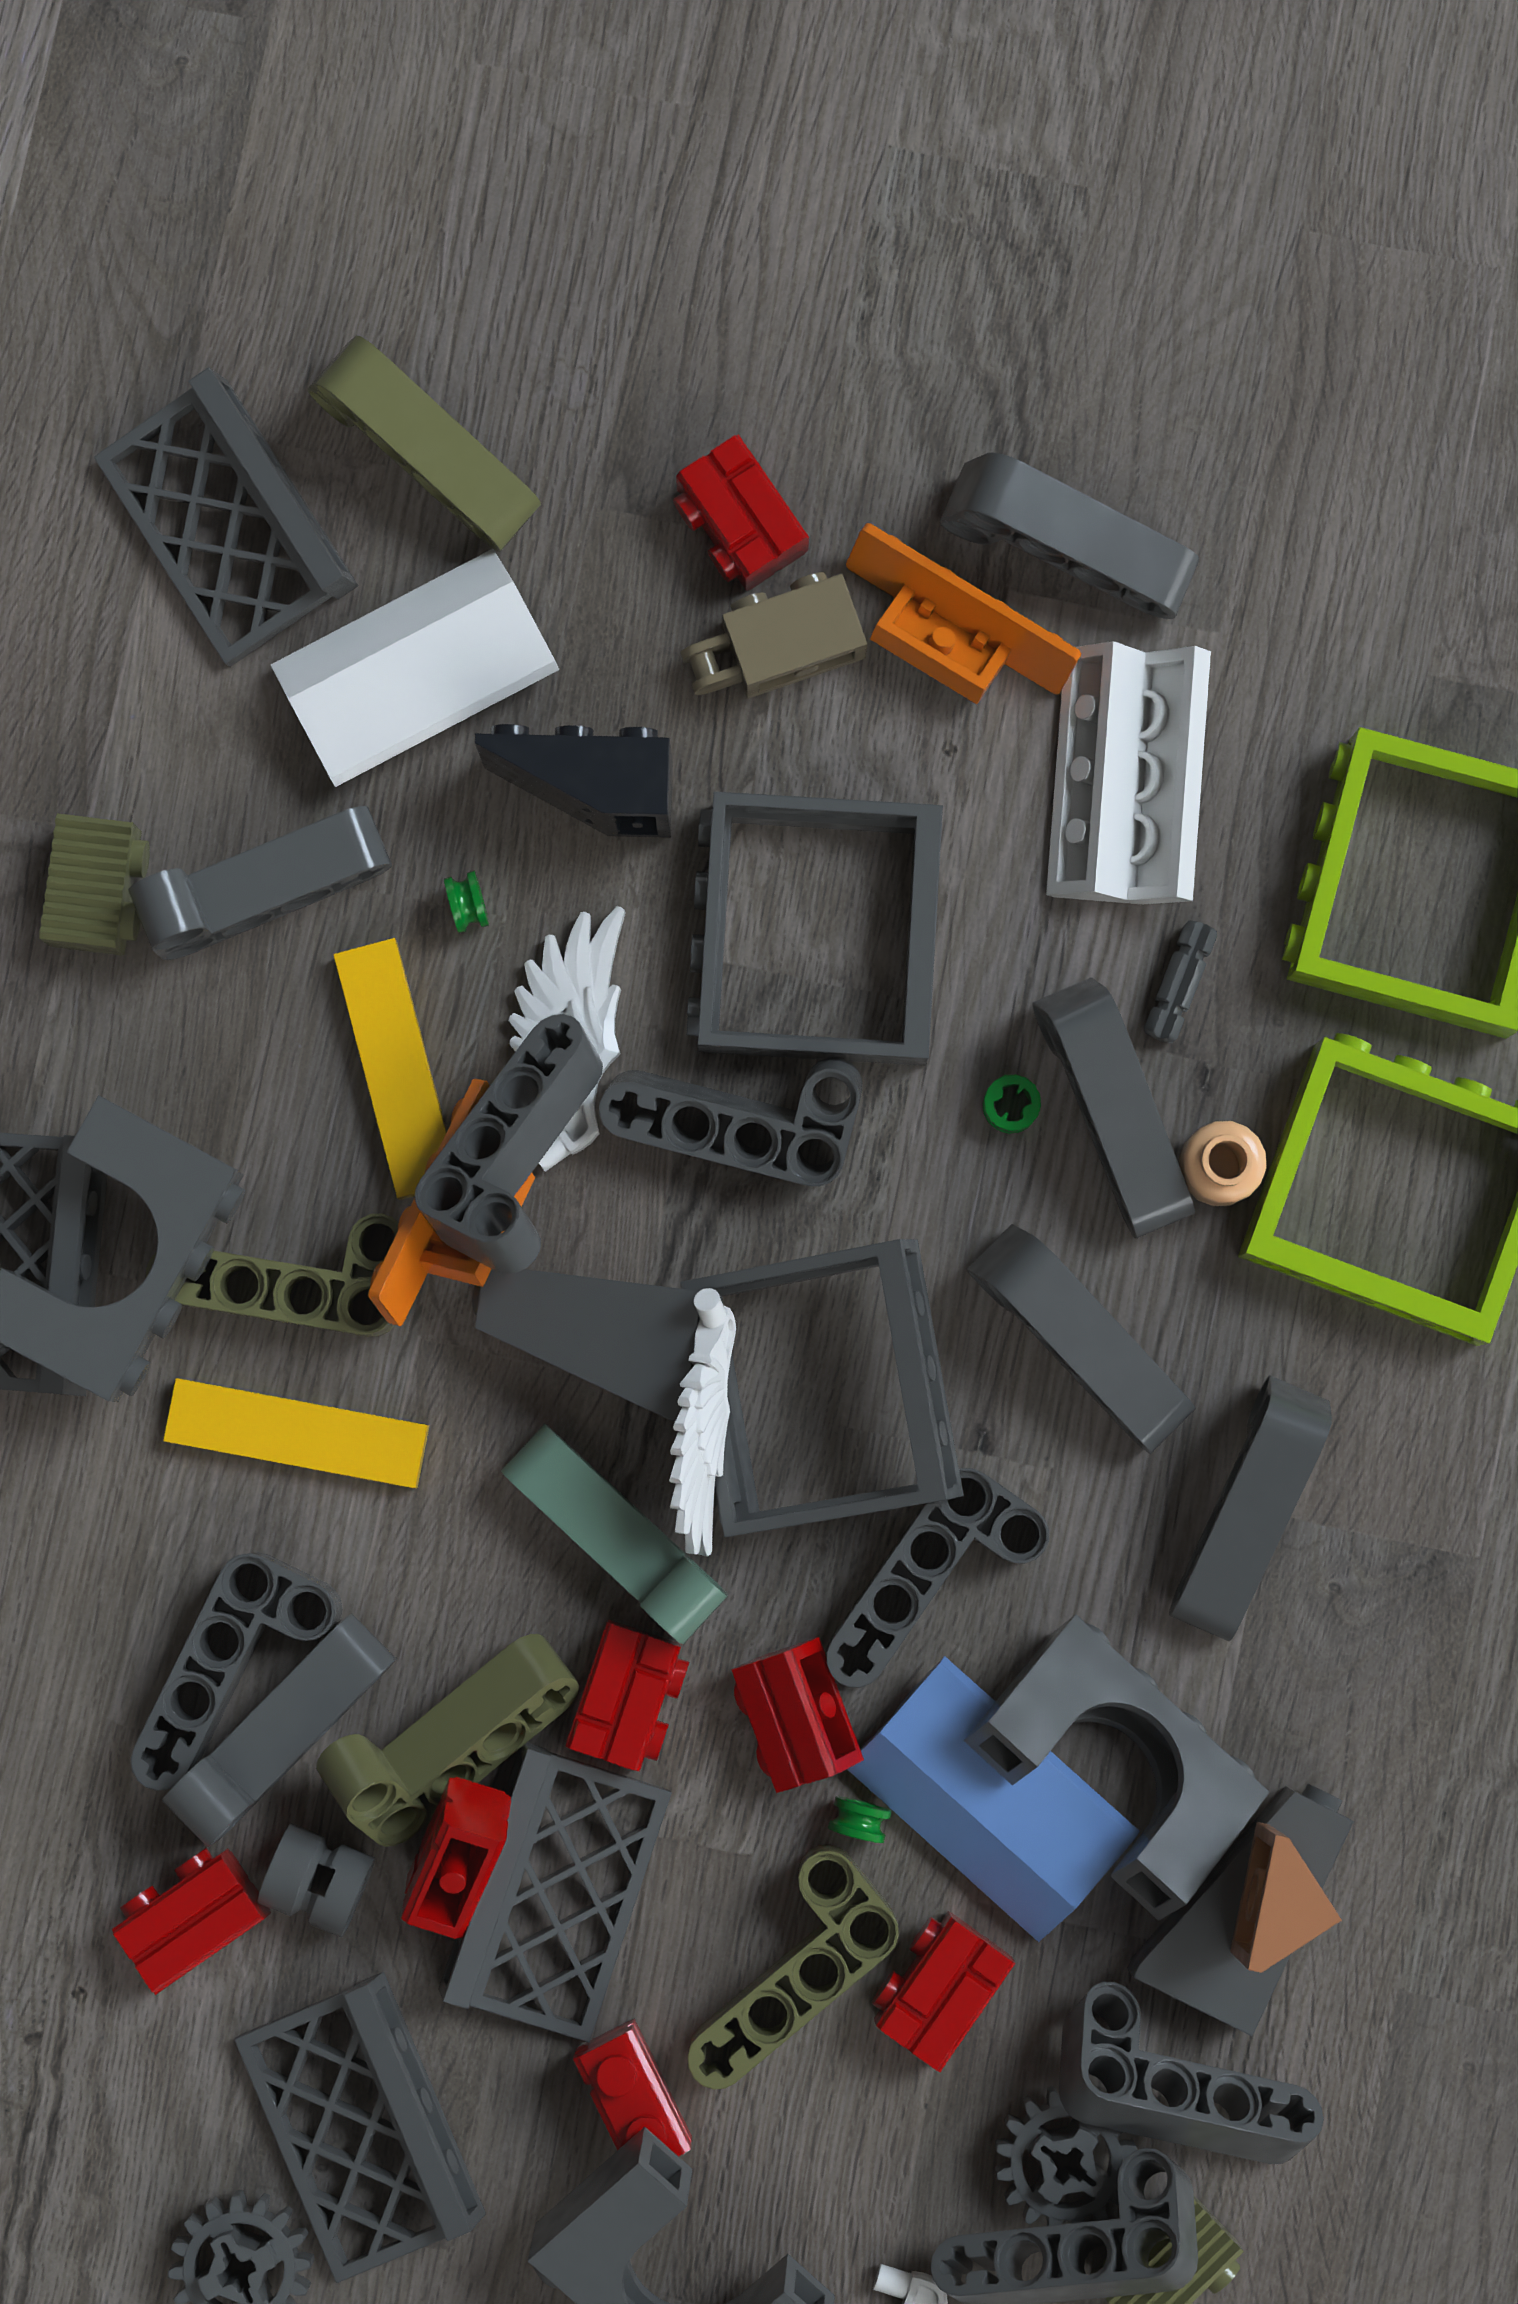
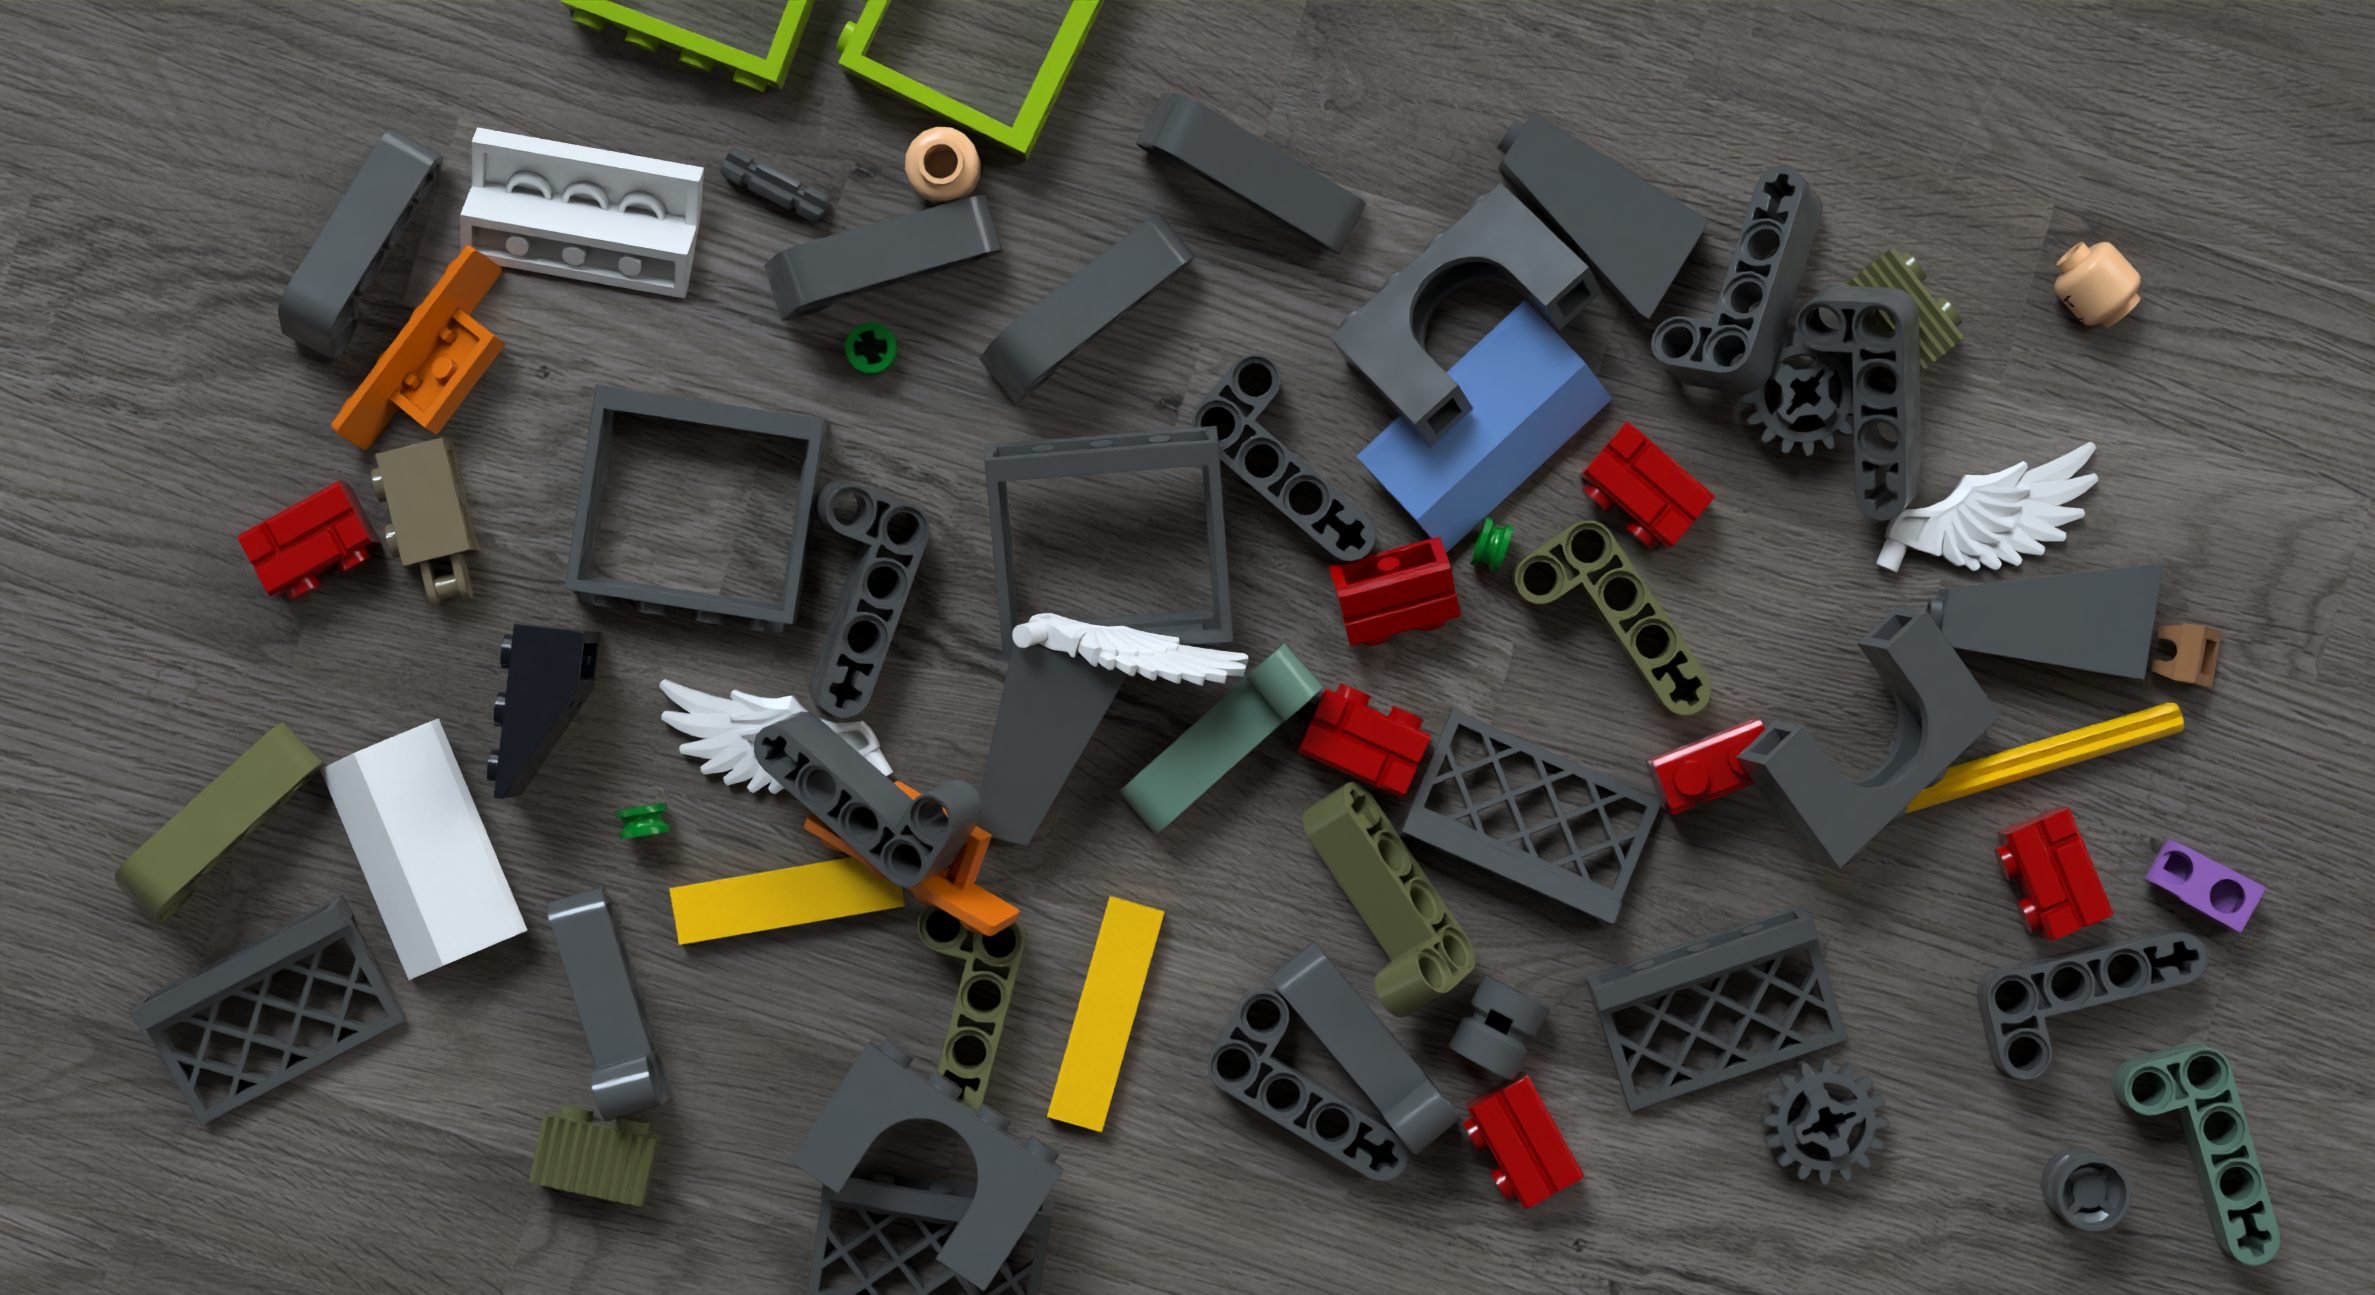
camera: 85 degrees left, 5 degrees up
(456, 1857) = (1490, 902): red brick -> none
(1278, 1904) = (1595, 185): nougat slope -> none

